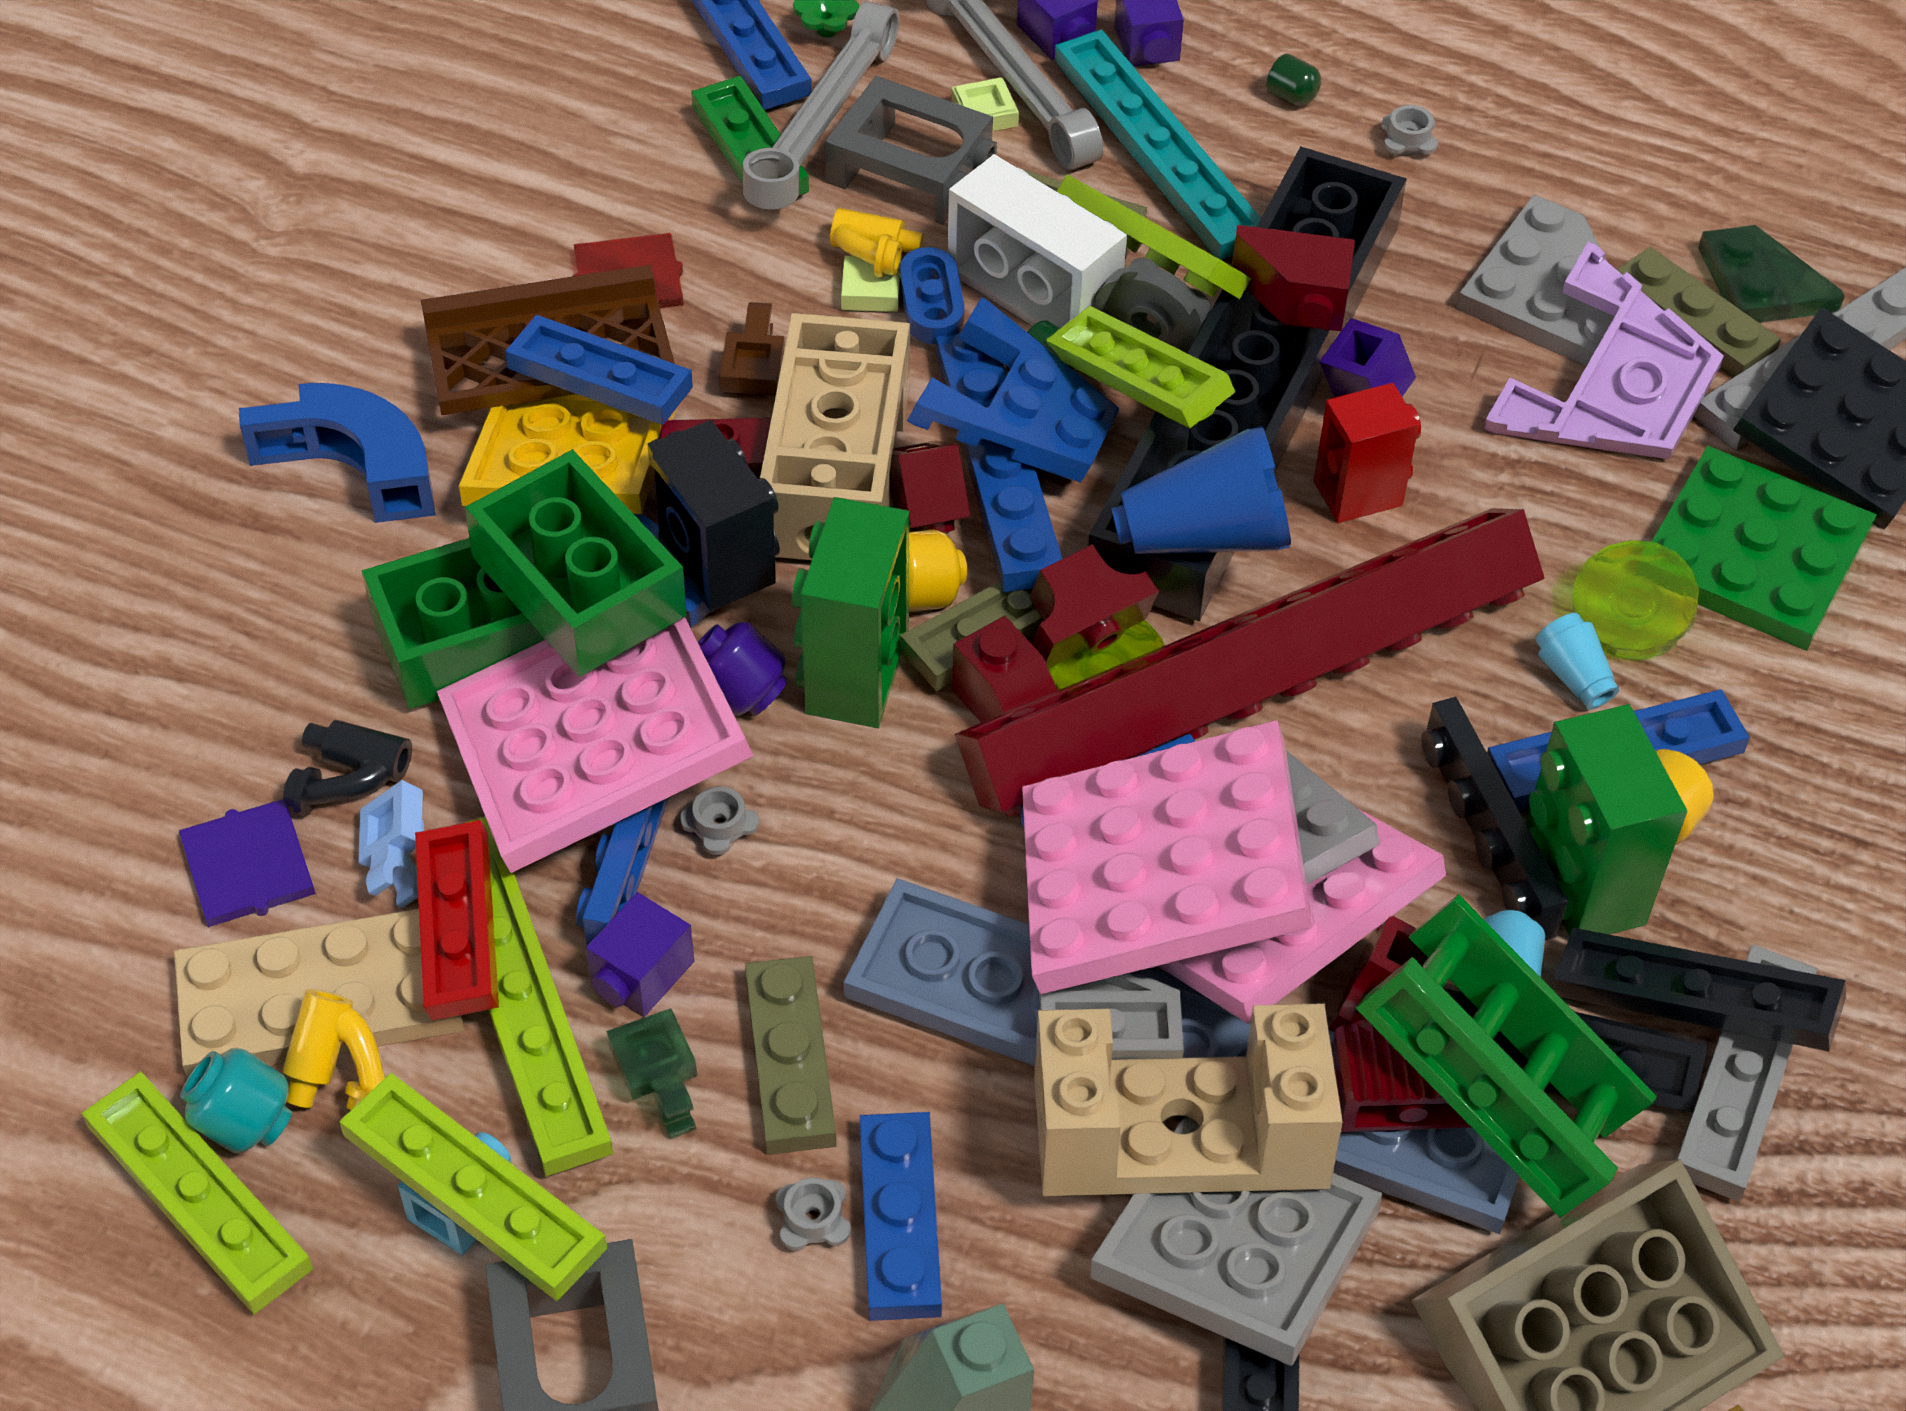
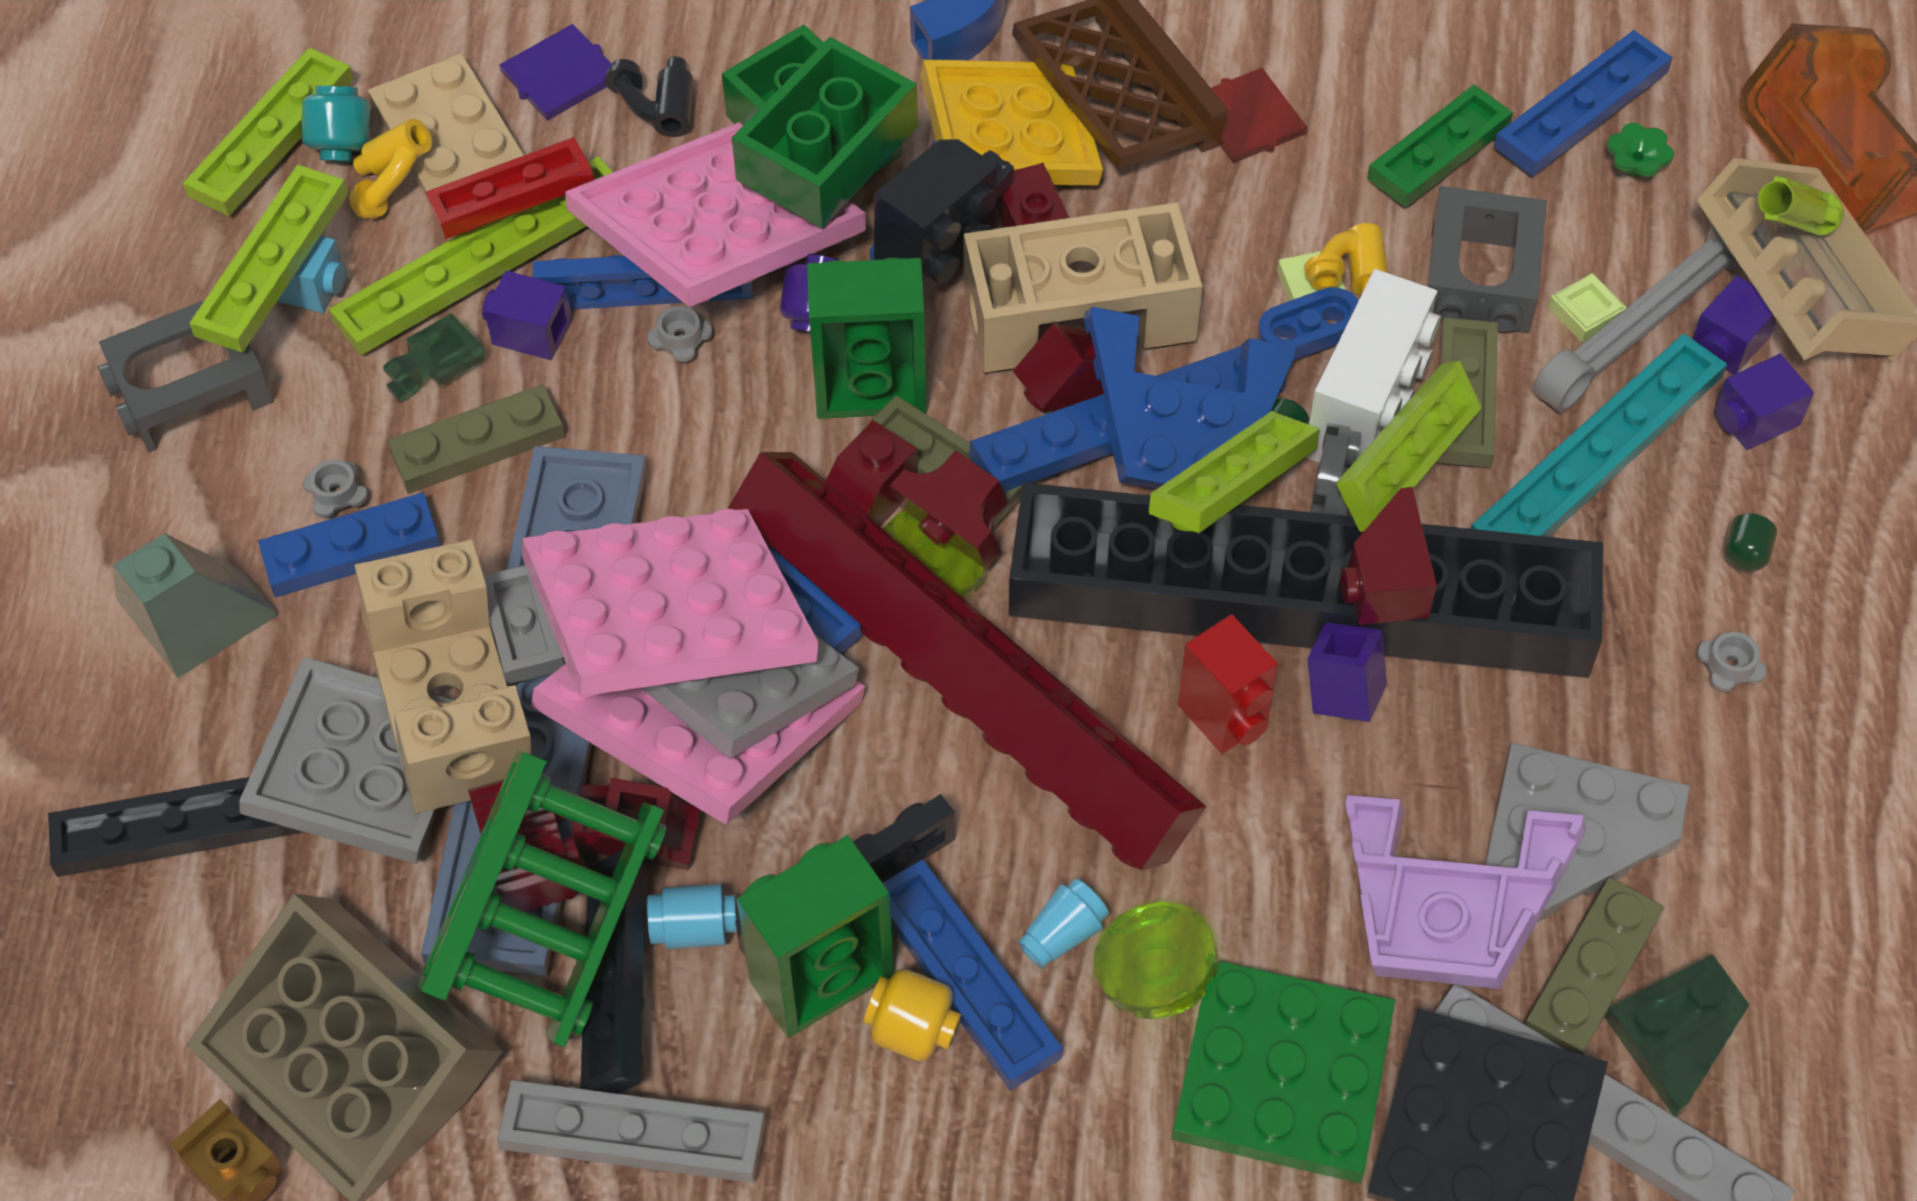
camera: 75 degrees right, 5 degrees up
(387, 839) = (599, 138): light blue plate -> none
(599, 369) = (1074, 104): blue plate -> none
(753, 358) = (1199, 214): reddish brown plate -> none
(871, 38) = (1503, 177): light grey piece -> none
(934, 570) = (973, 391): yellow head -> none
(1209, 503) = (1063, 552): blue cone -> none
(1701, 988) = (686, 1069): black plate -> none

